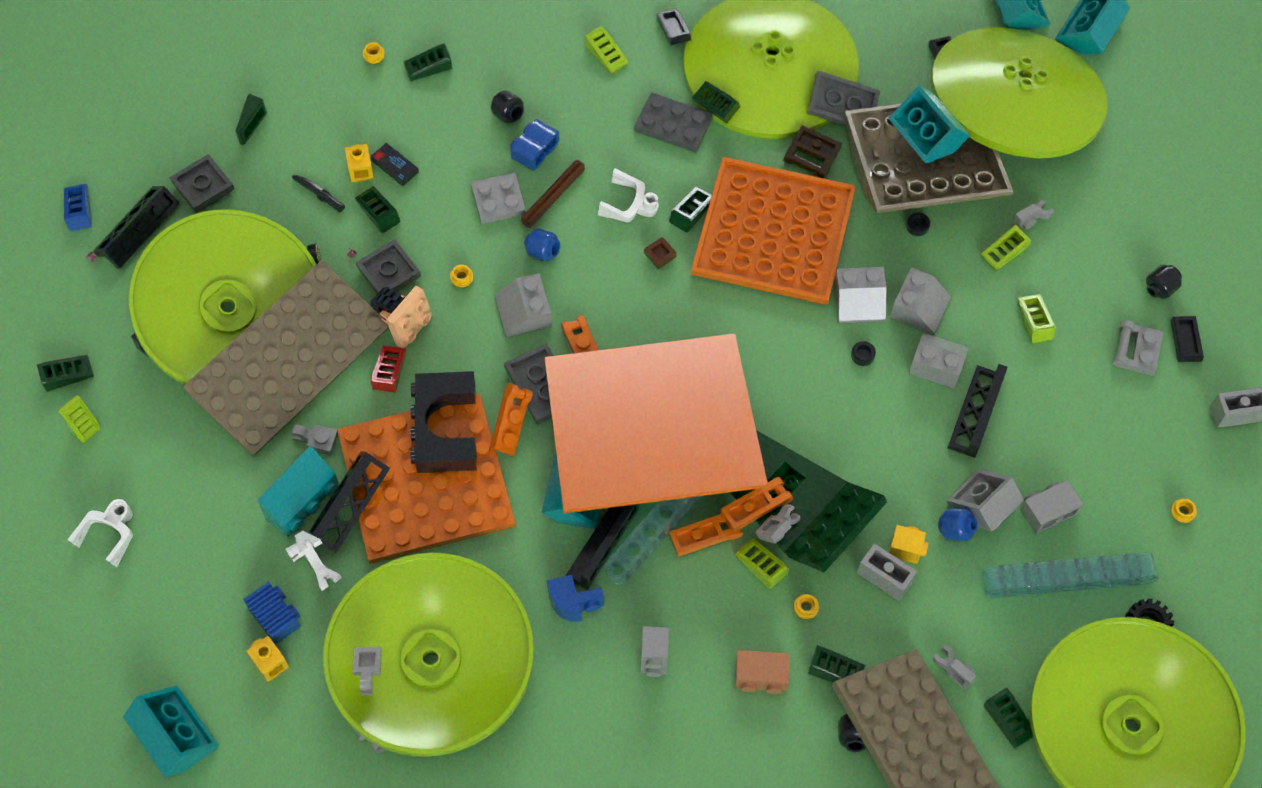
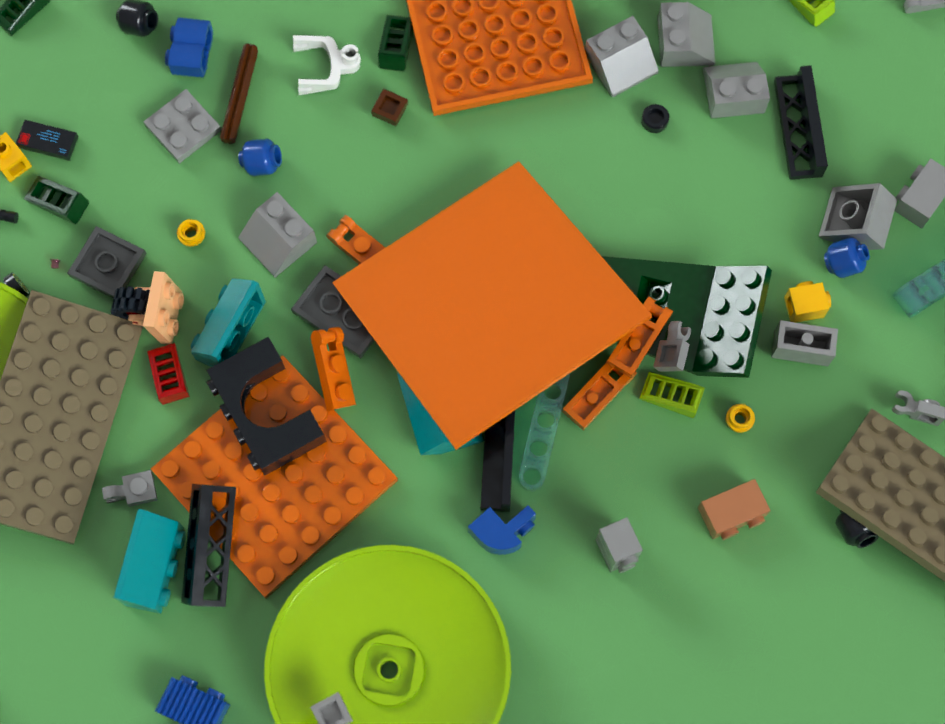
camera: 25 degrees left, 10 degrees up
(304, 547) = (197, 621): white piece -> none
(455, 350) = (228, 322): none -> teal slope
(829, 655) = (780, 471): dark green slope -> none

